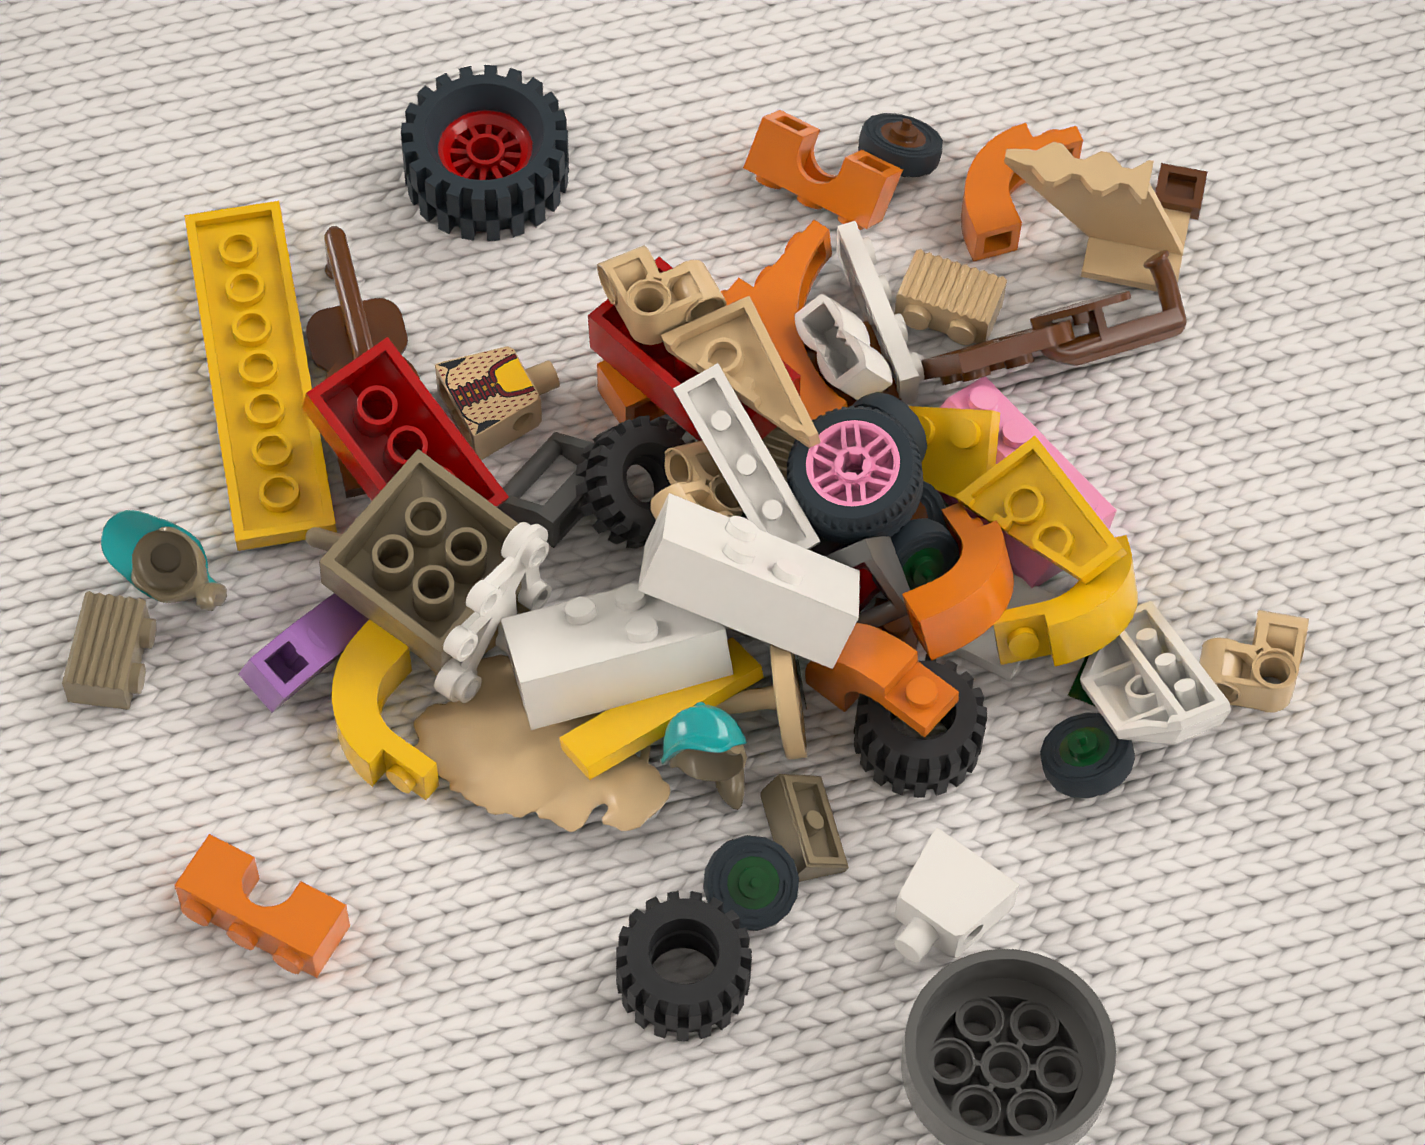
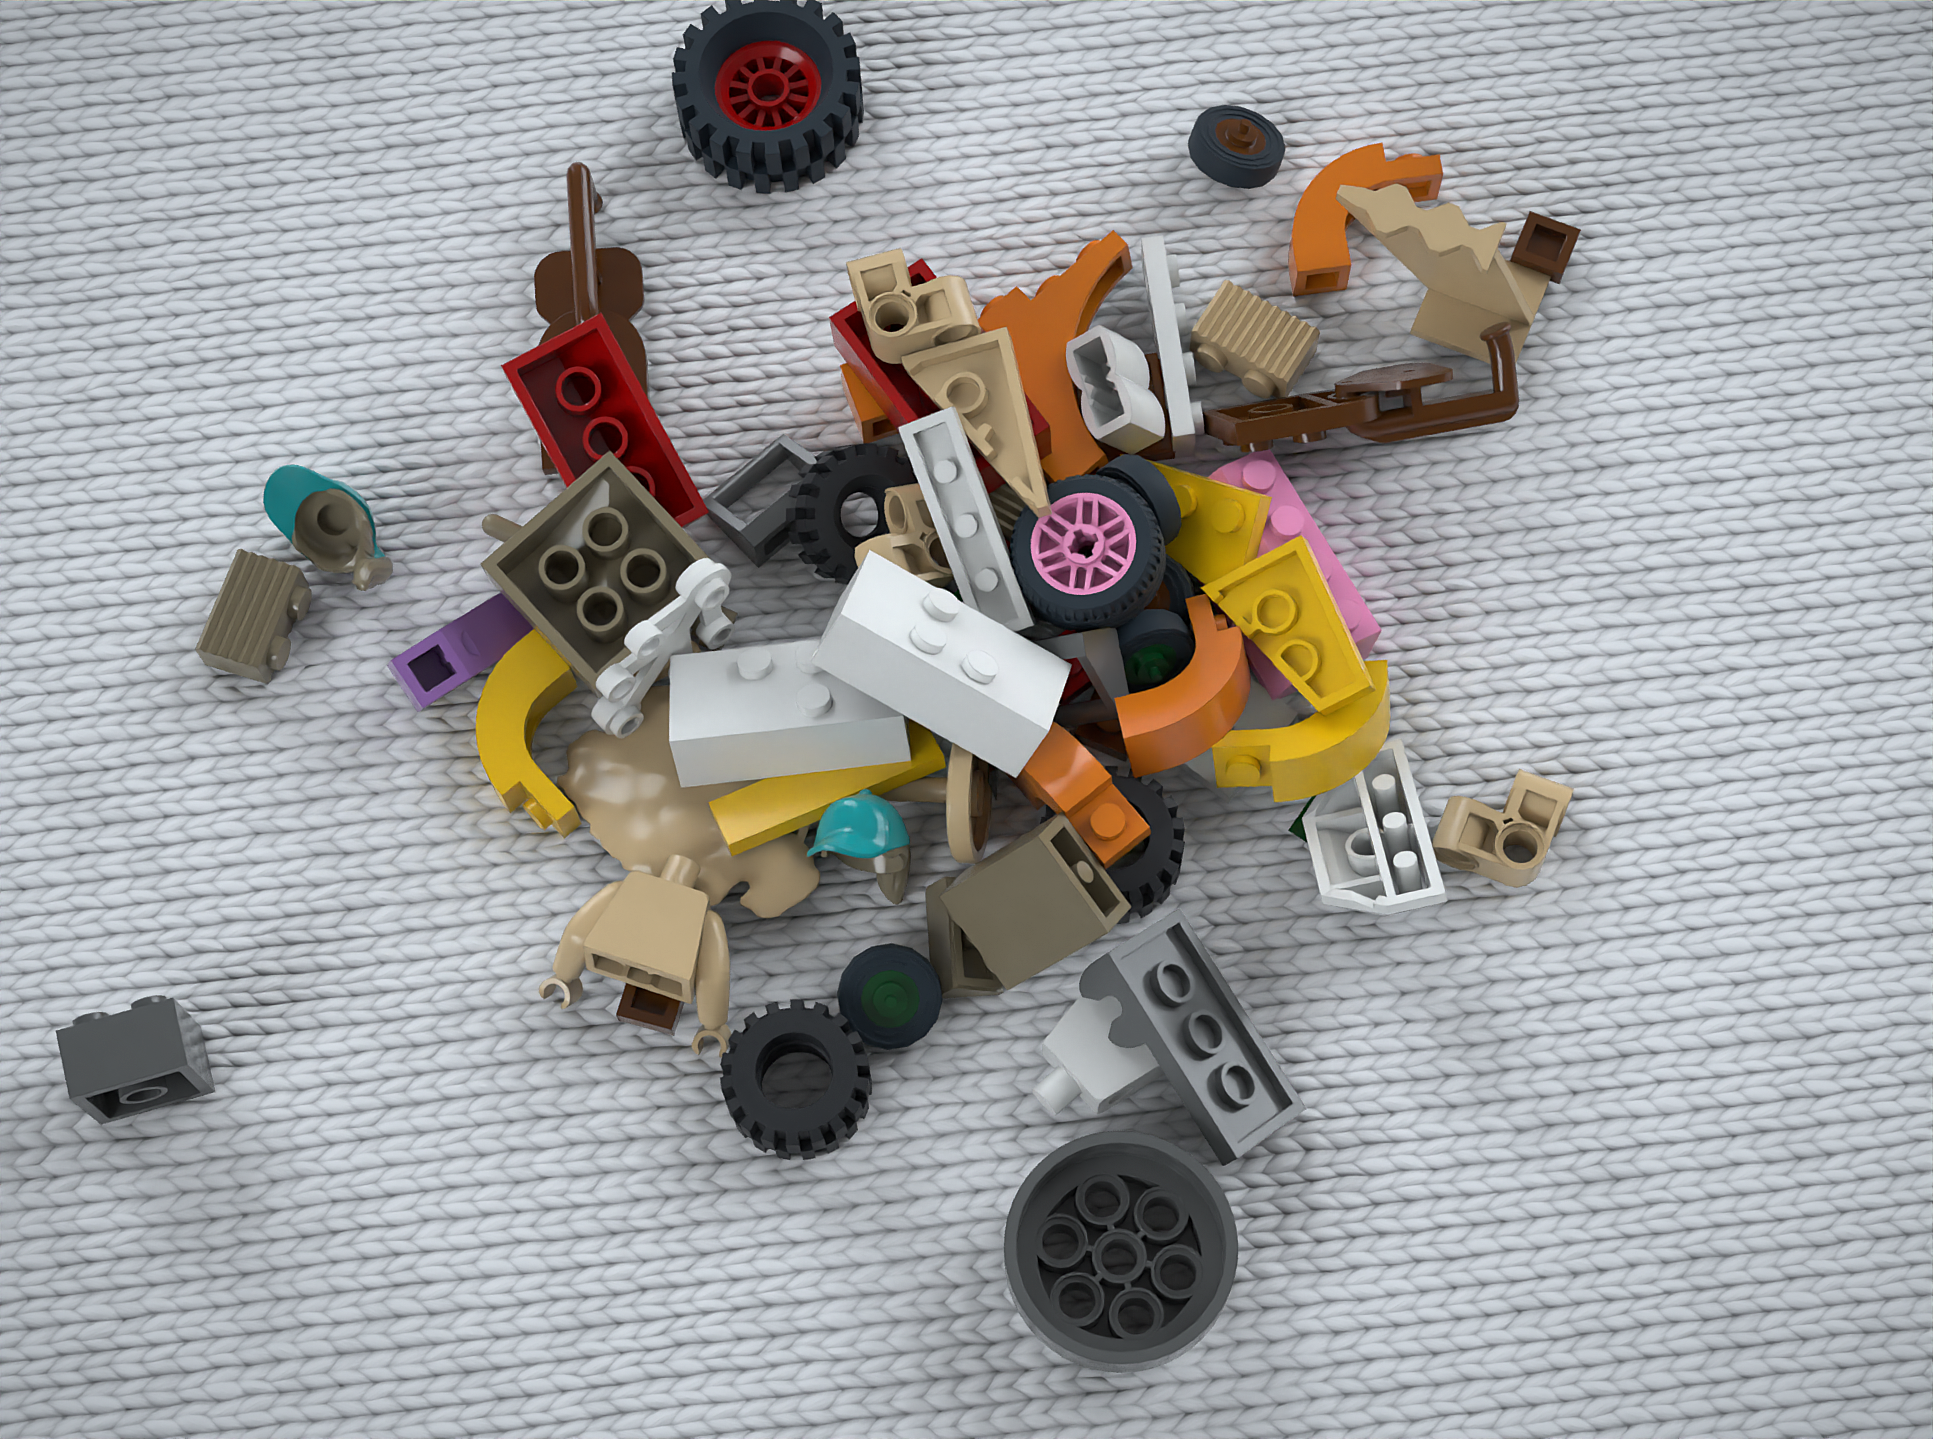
camera: 15 degrees right, 10 degrees up
(76, 1042) = (134, 1059): none -> dark grey brick
(258, 375) = (473, 317): yellow plate -> none
(296, 932) = (399, 968): orange arch -> none
(494, 396) = (724, 384): tan torso -> none
(534, 860) = (654, 938): none -> tan torso
(537, 919) = (649, 1009): none -> reddish brown plate
(786, 159) = (1103, 146): orange arch -> none
(867, 775) = (1035, 901): none -> dark tan brick
(1032, 865) = (1196, 1034): none -> dark grey hinge
(1085, 756) = (1285, 911): black wheel -> none

